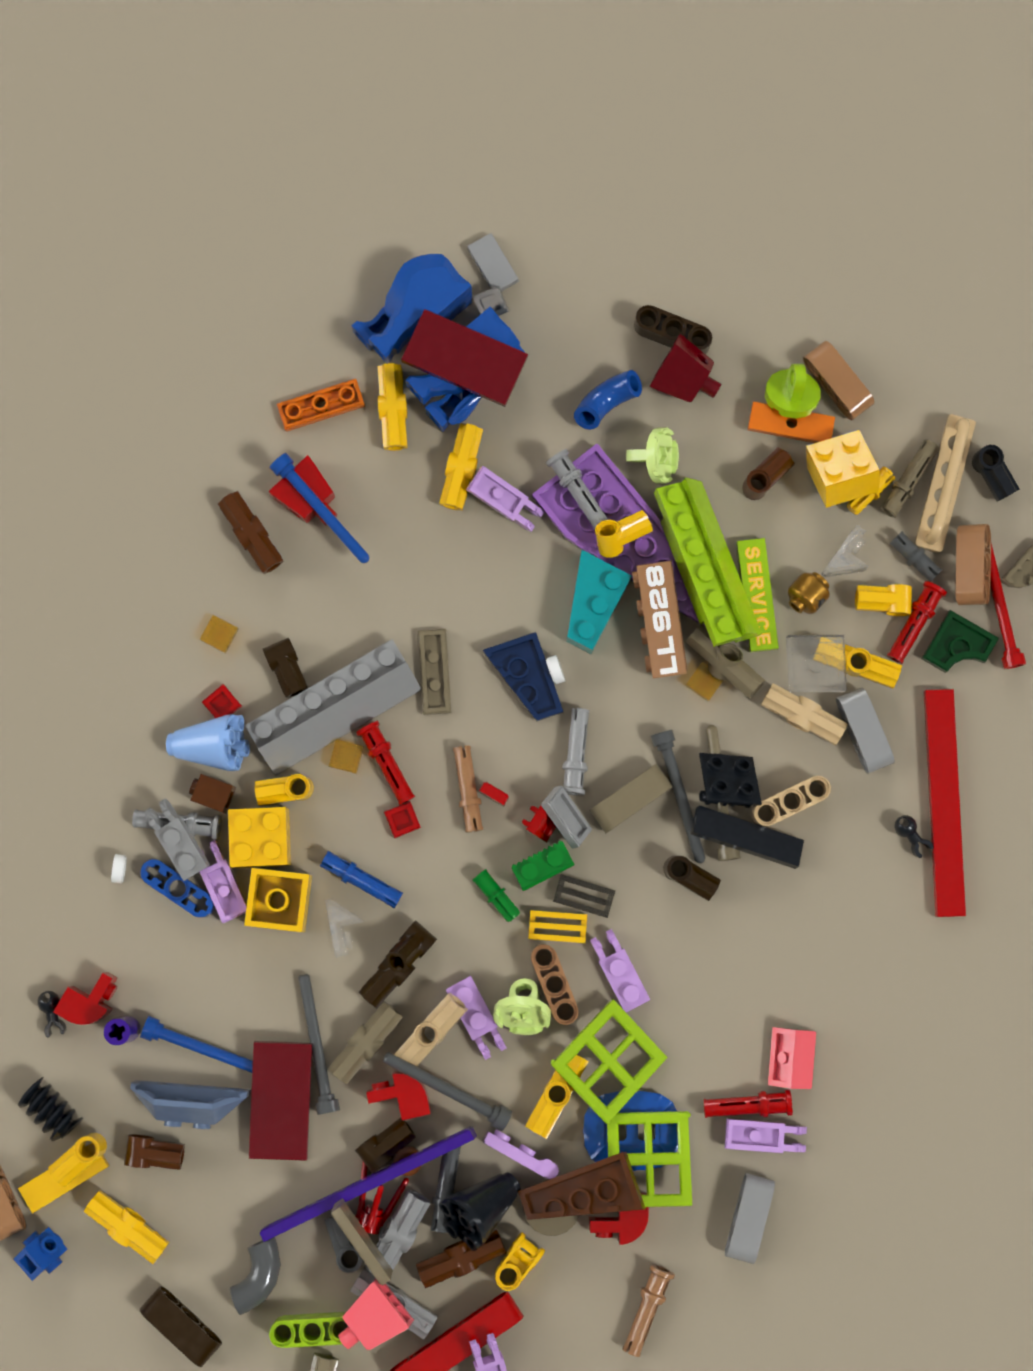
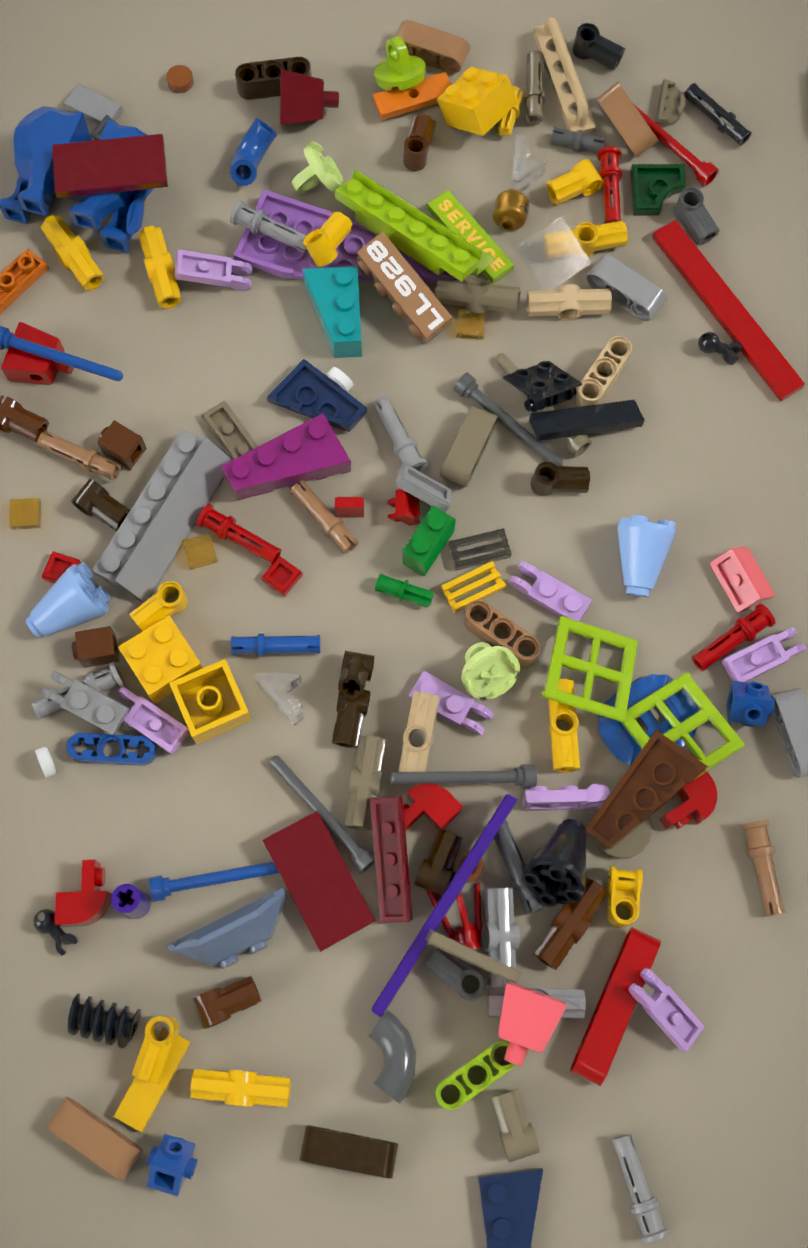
camera: 30 degrees left, 10 degrees down
(299, 618) = (88, 459): none -> medium nougat pin
(333, 620) = (121, 444): none -> reddish brown brick
(347, 1120) = (391, 859): none -> dark red tile
(469, 722) = (298, 455): none -> magenta wedge
(588, 279) = (180, 78): none -> dark orange tile
(718, 986) = (643, 551): none -> light blue cone
(723, 1170) = (749, 703): none -> blue brick
(974, 702) = (695, 216): none -> dark grey piece

